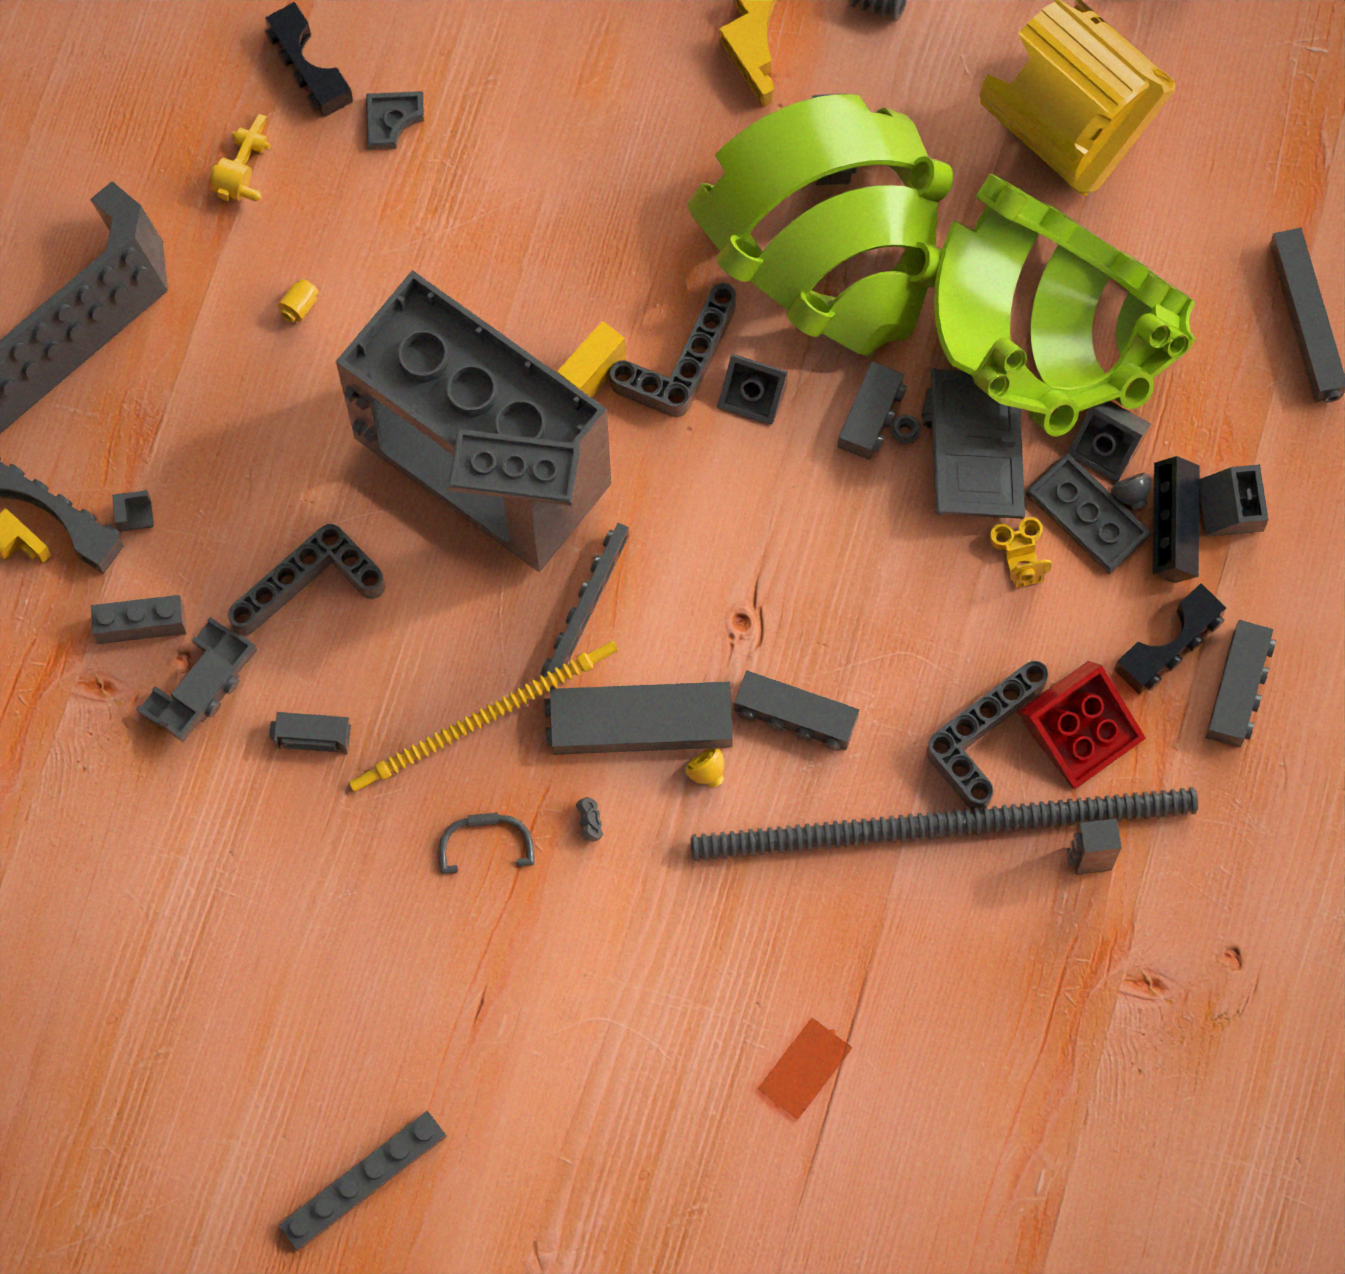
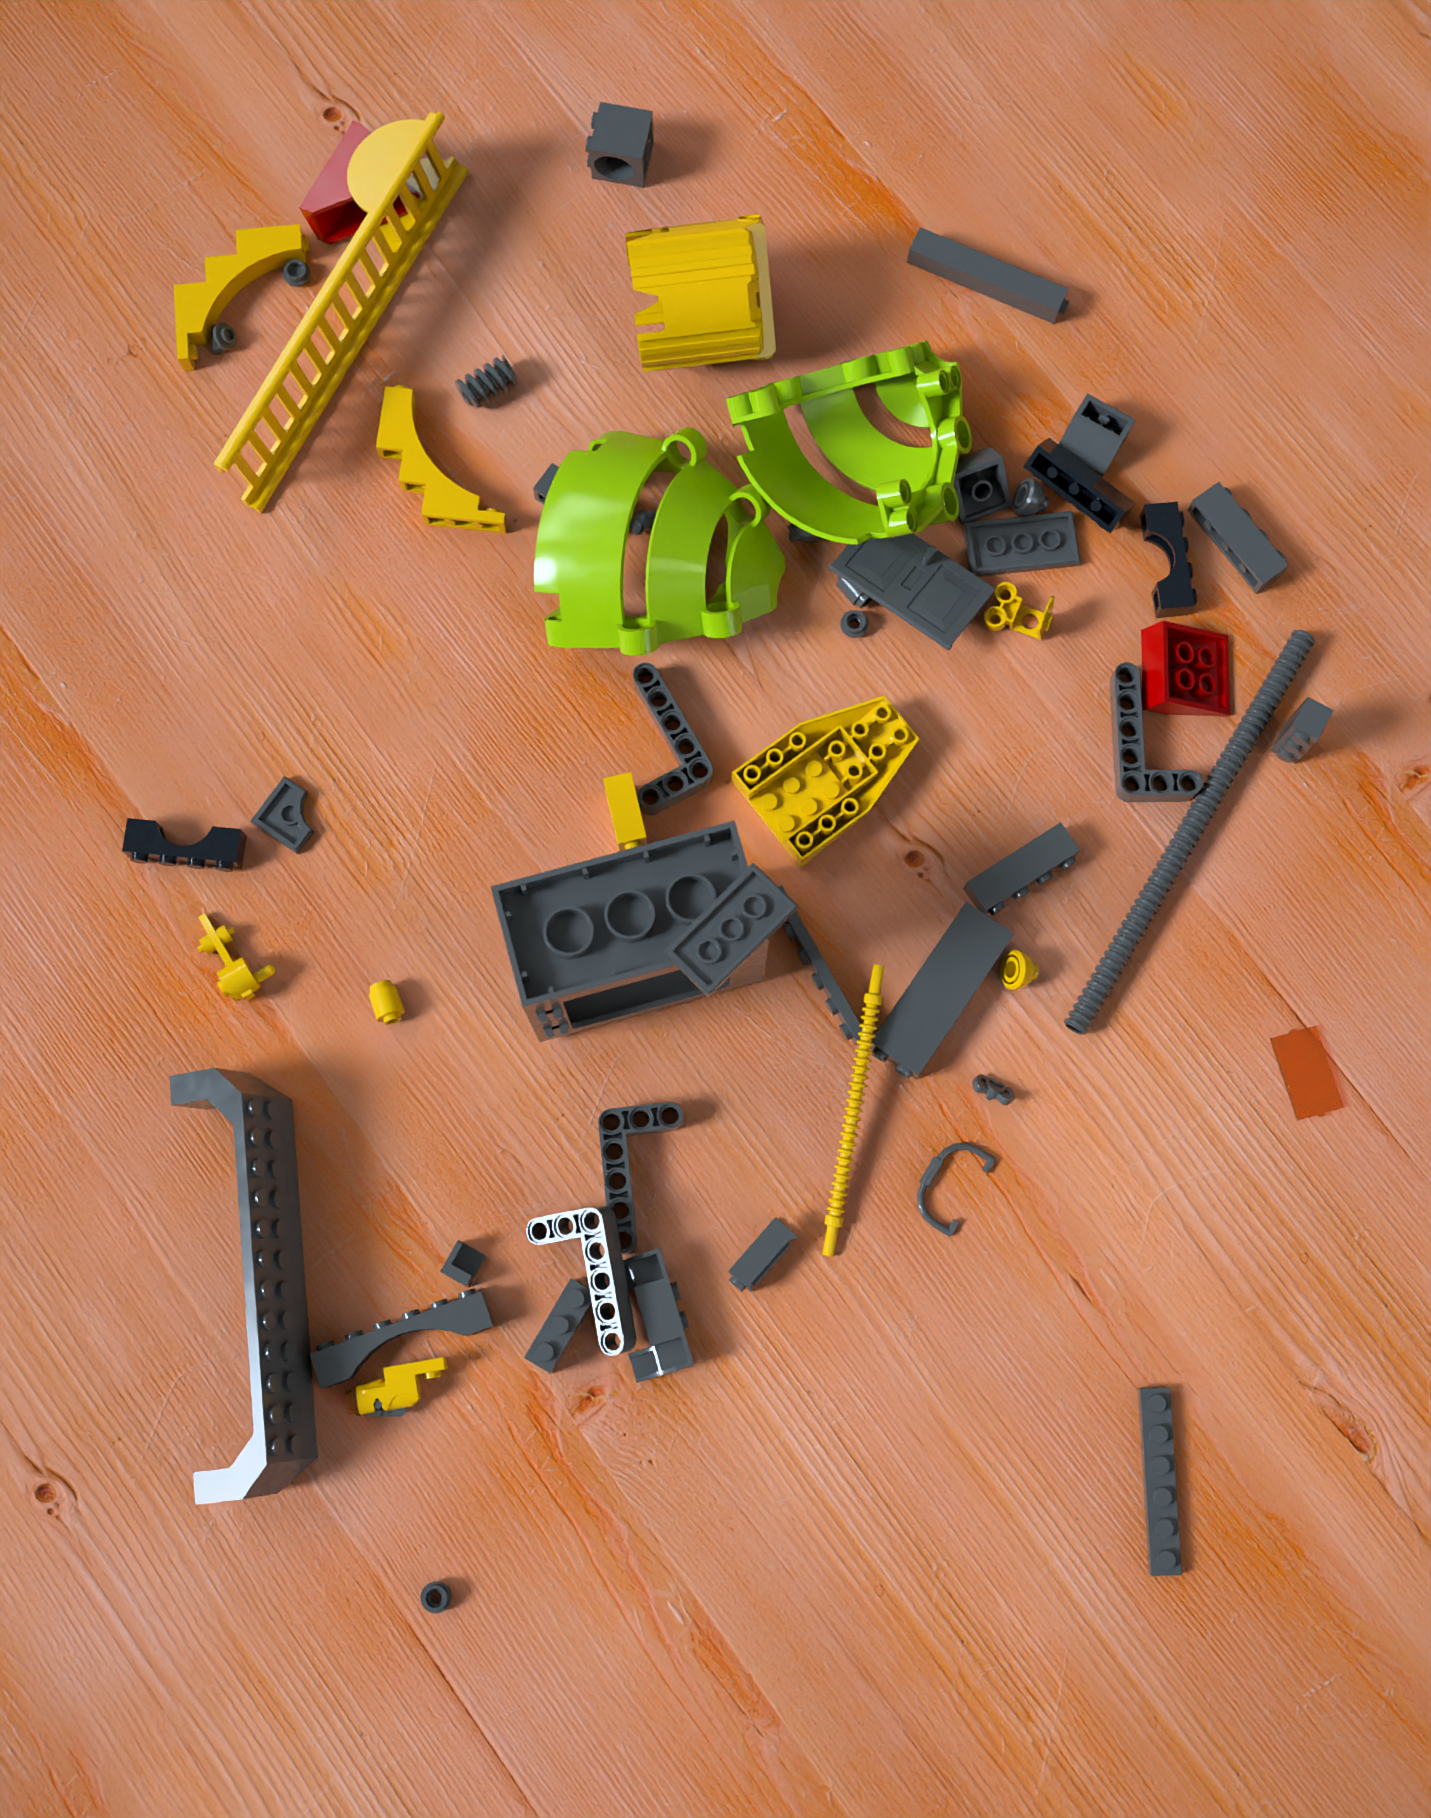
camera: 55 degrees left, 5 degrees up
(204, 615) = (597, 1267): none -> dark grey beam
(753, 389) = (737, 710): dark grey slope -> none
(753, 495) = (825, 774): none -> yellow wedge
(872, 411) = (822, 636): dark grey brick -> none

